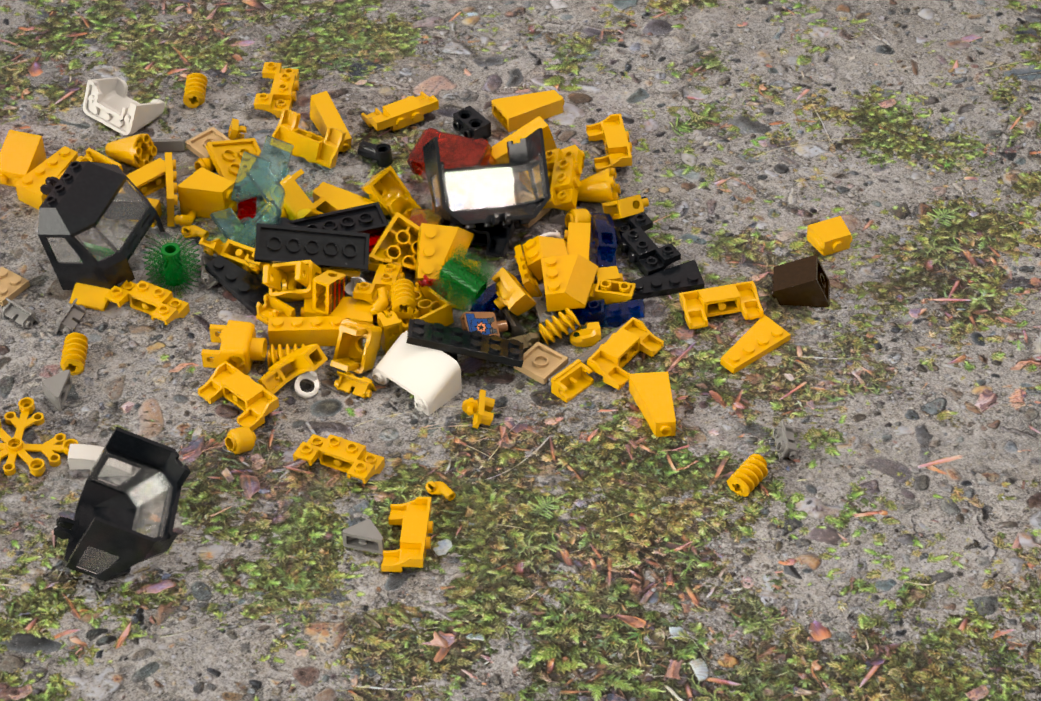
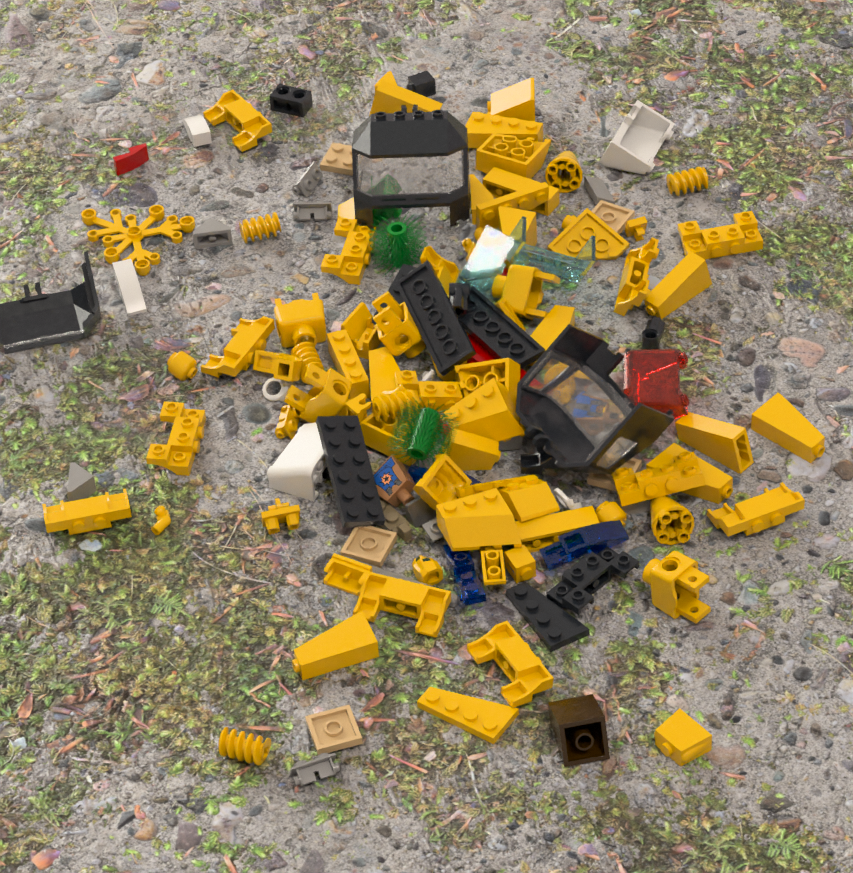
camera: 75 degrees right, 0 degrees up
(243, 315) = (356, 322): none -> yellow slope
(328, 291) = (389, 352): yellow torso -> none
(402, 112) = (727, 334): yellow bracket -> none
(471, 123) = (737, 393): black brick -> none
(558, 325) = (419, 539): yellow piece -> none
(625, 206) = (640, 543): yellow torso -> none
(681, 201) = (673, 578): none -> yellow piece
(746, 422) = (333, 729): none -> tan plate

